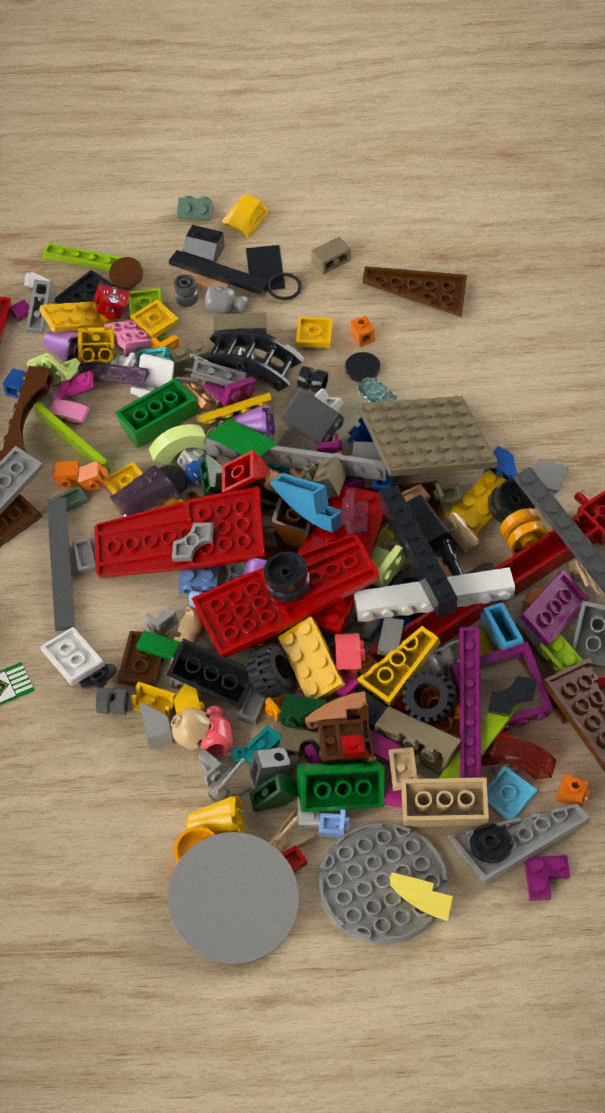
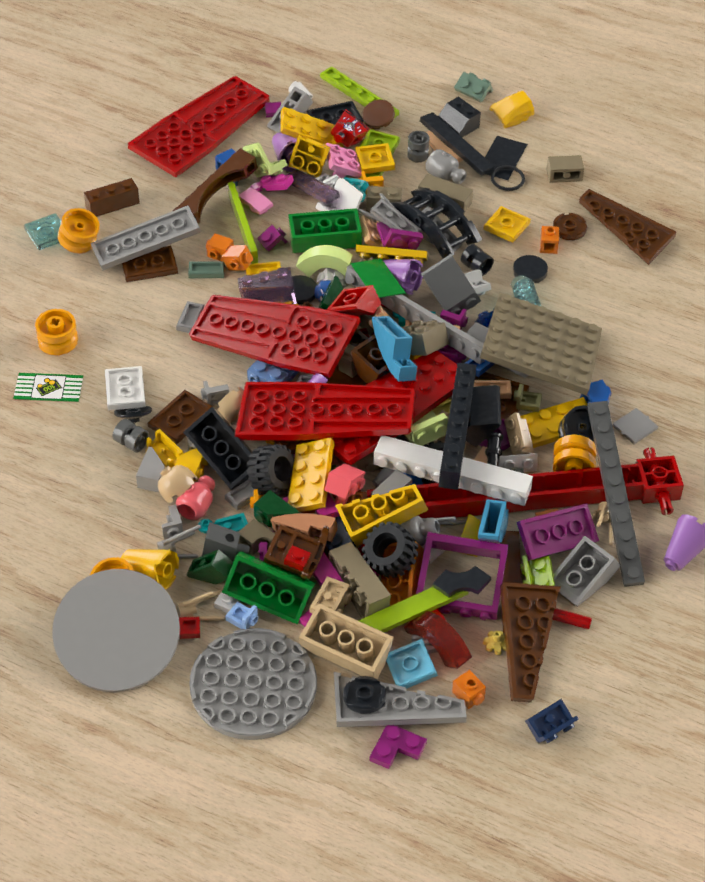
camera: 25 degrees right, 5 degrees down
(60, 564) = (165, 314): dark grey tile -> none
(109, 441) = (272, 237): none -> magenta bracket
(157, 645) = (193, 406): green tile -> none
(198, 536) = (270, 341): light grey tile -> none
(287, 577) = (328, 395): black wheel -> none
(355, 513) = (426, 373): clear pink bracket -> none
(372, 307) = (570, 226): none -> reddish brown tile
(422, 896) = (276, 708): light yellow slope -> none
(470, 702) = (422, 570): magenta tile -> none
(477, 556) = (527, 461): none -> white hinge
(564, 734) = (495, 641): none -> light yellow plant

